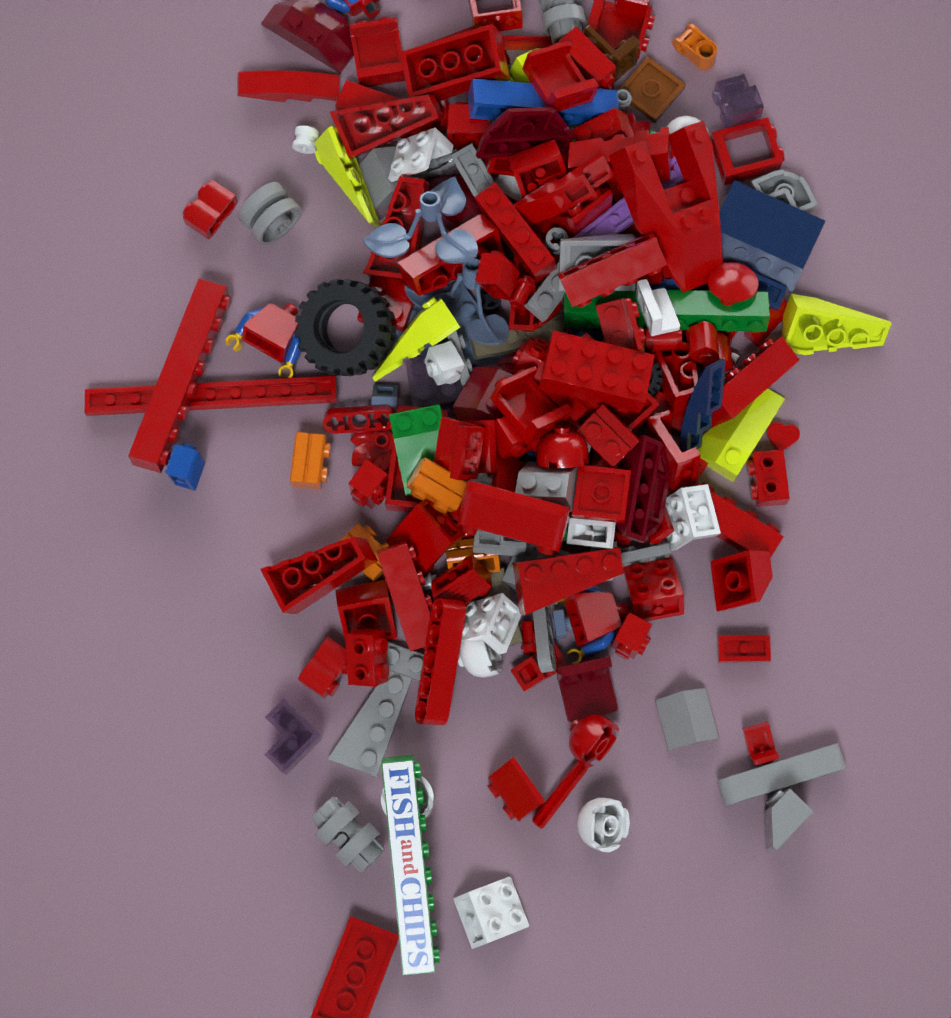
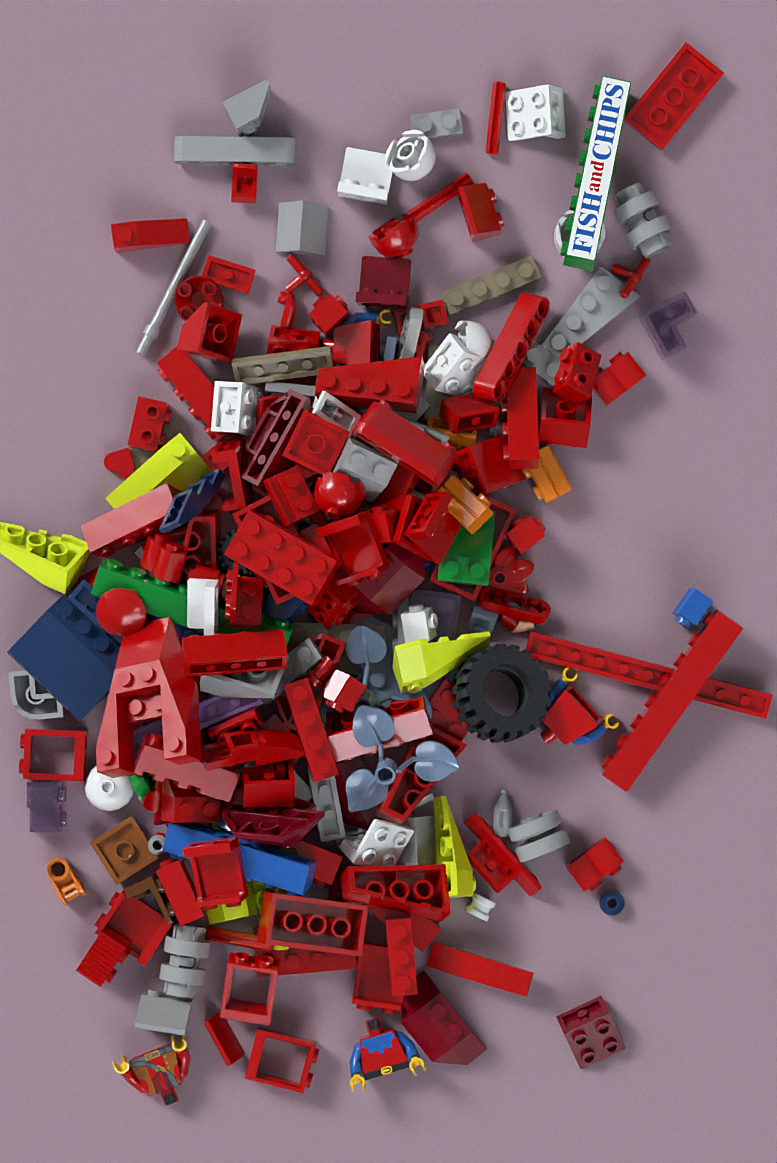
camera: 160 degrees left, 10 degrees up
(170, 64) = (591, 1032): none -> dark red bracket
(186, 187) = (604, 899): none -> dark blue plate
(305, 182) = (495, 860): none -> red bracket
(309, 460) = (573, 580): orange brick -> none
(310, 227) = (502, 815): none -> light grey piece
(313, 575) = (608, 465): red wedge -> none
(340, 776) = (634, 277): none -> red piece
(352, 401) = (515, 625): none -> arm
(363, 65) = (401, 956): none -> red brick
(480, 722) = (490, 285): none -> dark tan plate
(530, 895) = (495, 118): none -> red axle
(556, 233) = (267, 708): light grey bush -> none
(587, 869) = (438, 123): none -> light grey plate
(642, 790) = (365, 176): none -> white bracket
(659, 571) = (282, 365): none -> dark tan plate
(668, 672) = (304, 276): none -> red piece
(671, 633) = (289, 308): none -> red arm
(765, 617) = (194, 292): none -> red dish
(798, 570) = (151, 330): none -> light grey bar
(835, 663) = (149, 234): none -> red slope

